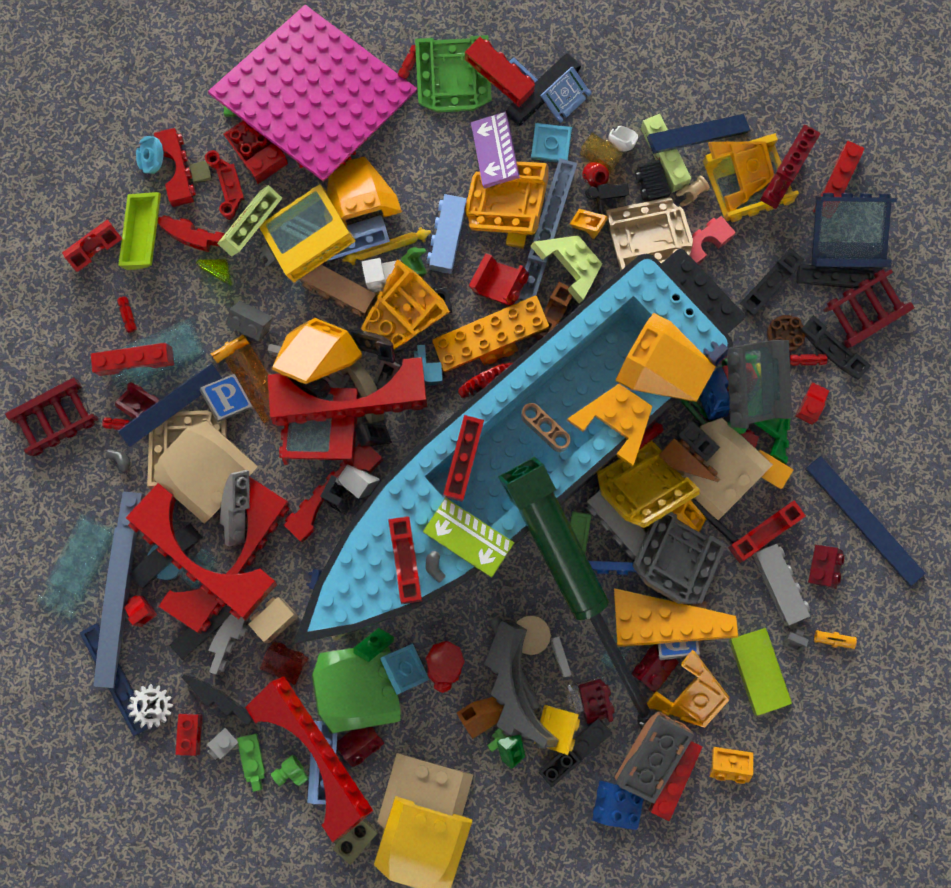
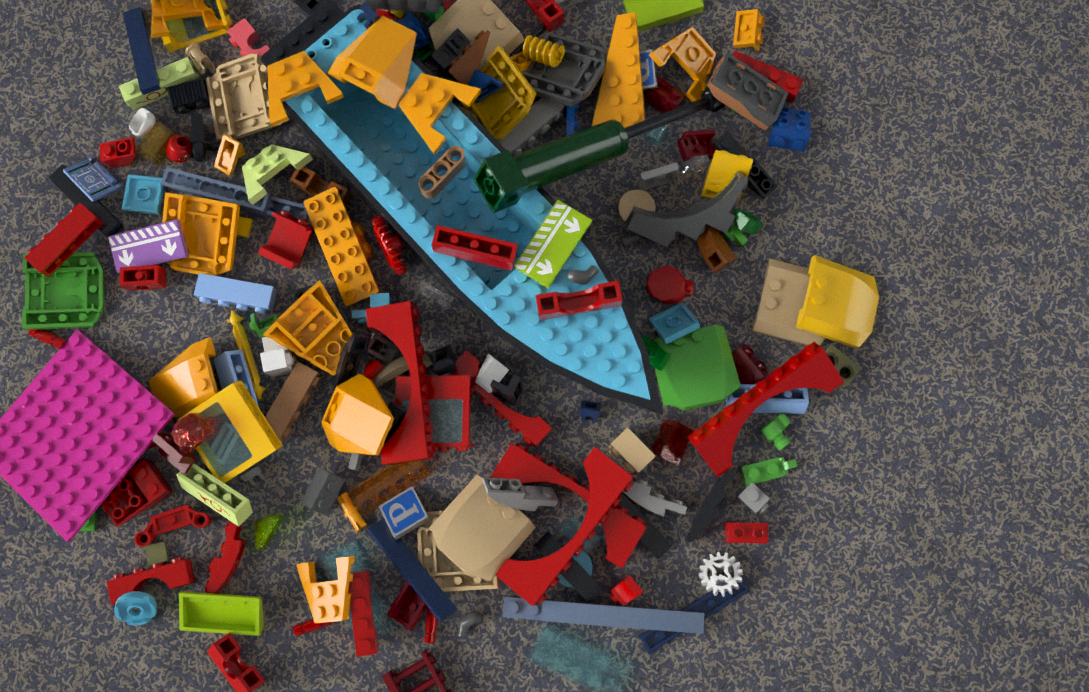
camera: 90 degrees left, 0 degrees up
(147, 326) = (328, 599): none -> light orange wing
(289, 182) = (173, 453): none -> dark red bracket
(304, 197) = (192, 431): none -> clear red animal
(366, 366) = (372, 369): none -> red tile
(463, 146) = (143, 277): none -> red brick
(591, 116) = (118, 152): none -> red slope
(649, 280) = (292, 78): none -> light orange wing
(658, 473) = (486, 83): none -> blue slope
(698, 537) = (542, 52): none -> yellow piece

